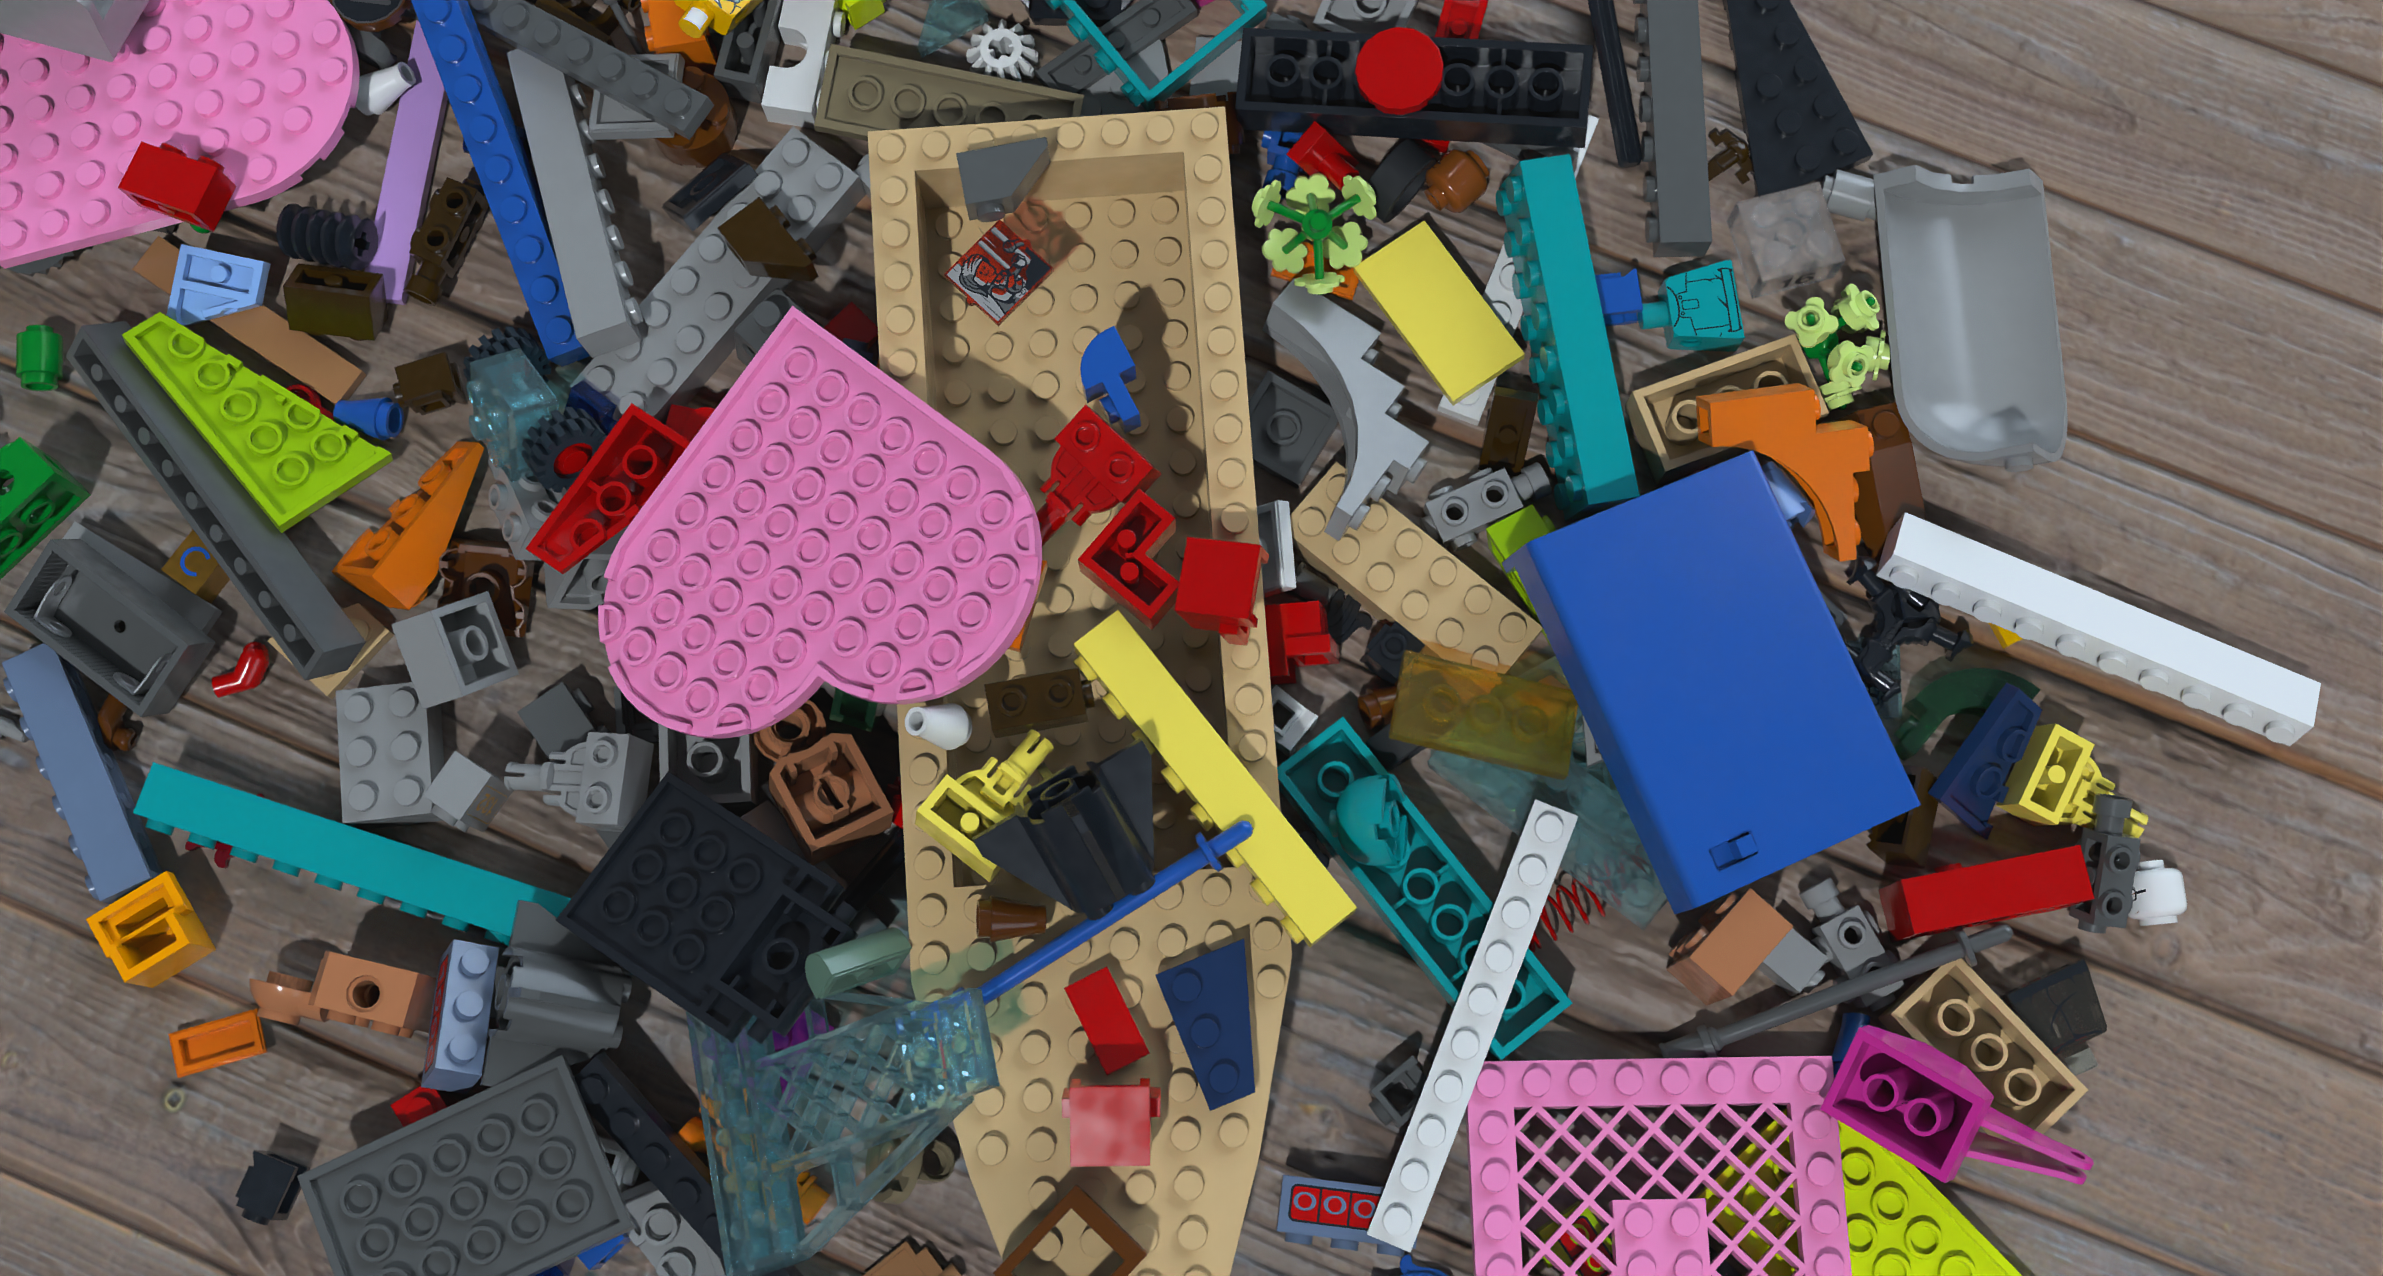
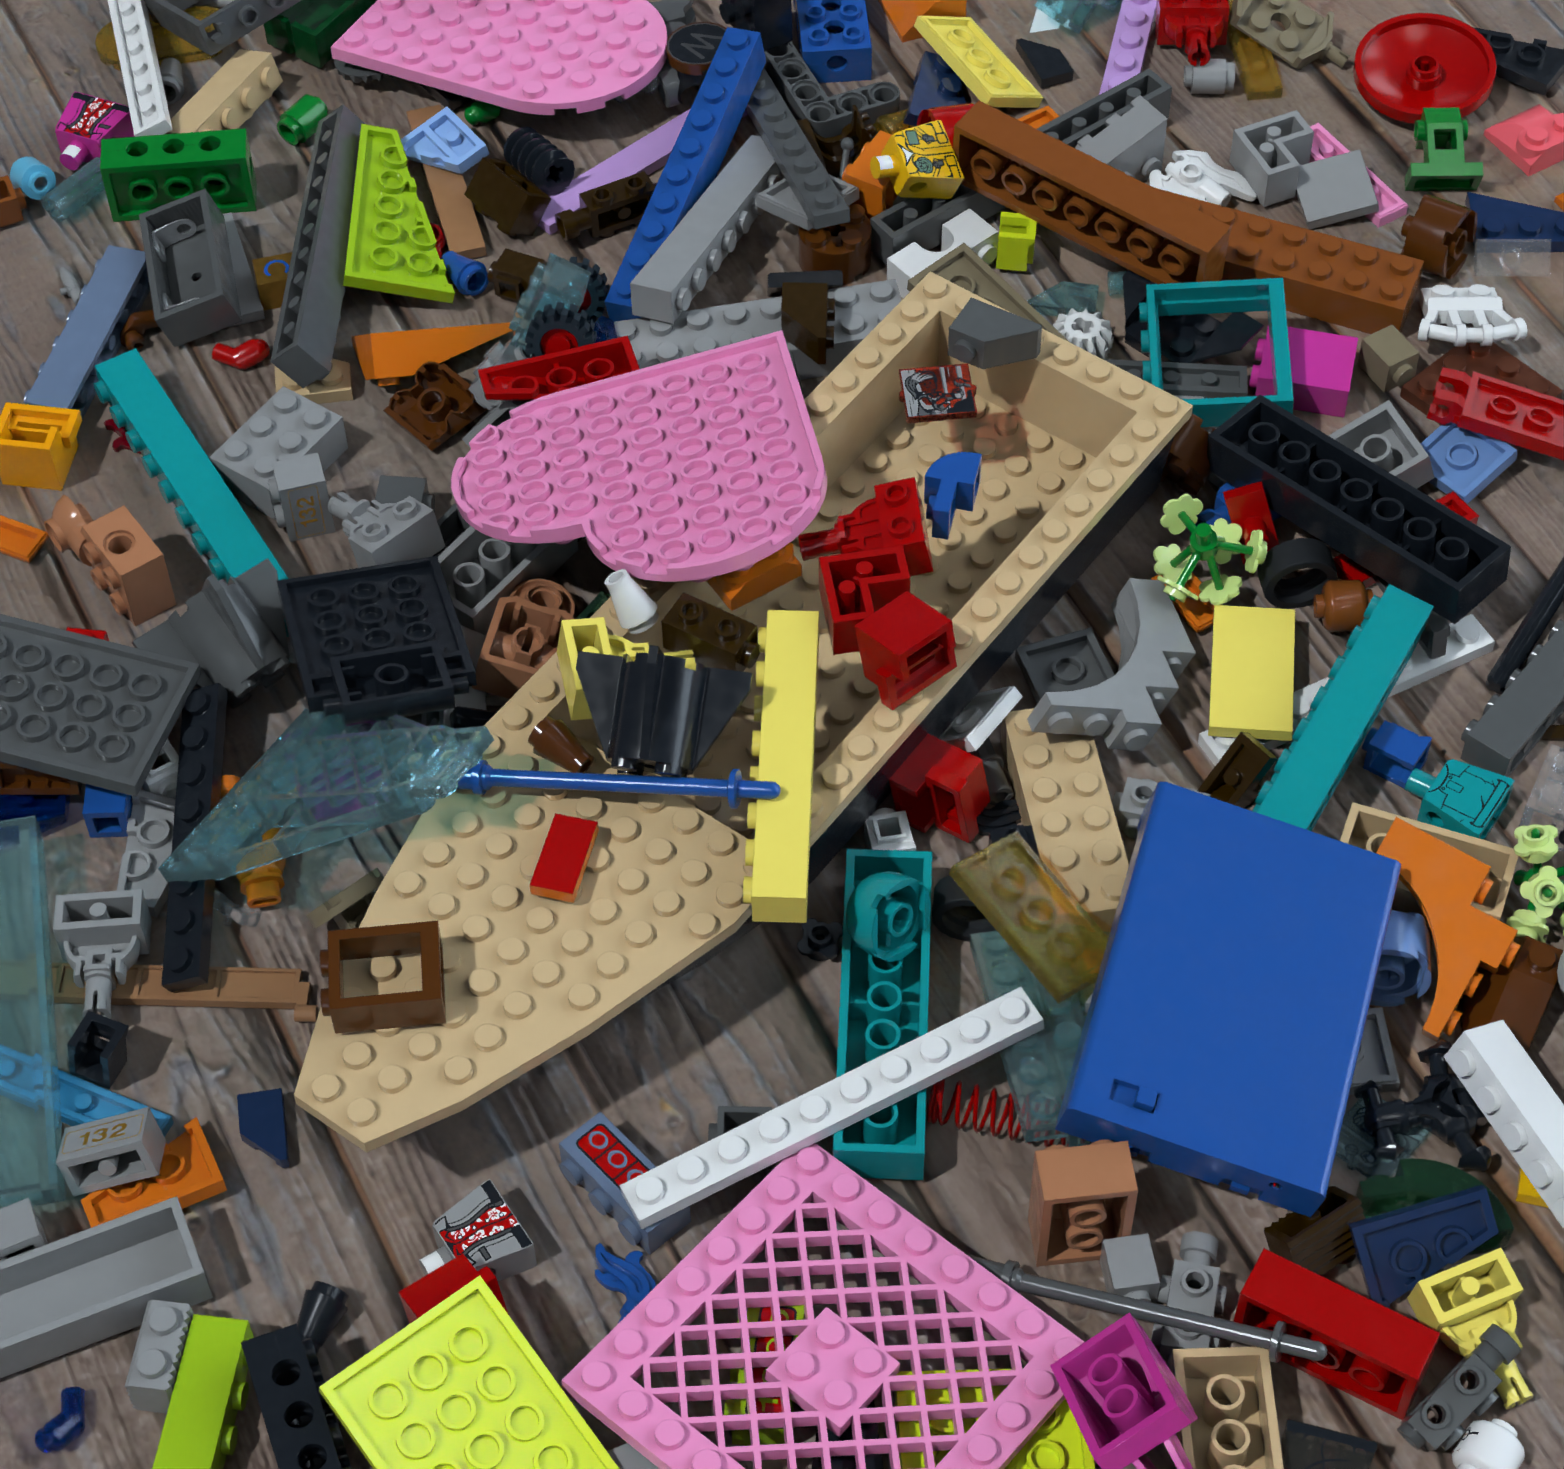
camera: 40 degrees right, 25 degrees down
(177, 185) = (474, 60): red brick -> none
(383, 87) = (654, 111): white cone -> none
(455, 650) = (378, 409): light grey brick -> none
(460, 1017) = (152, 606): sand blue brick -> none
(856, 962) = (431, 704): sand green brick -> none
(1110, 1123) = (503, 899): plate -> none
(1213, 1021) = (636, 910): dark blue wing -> none
(1399, 70) = (1347, 476): red tile -> none

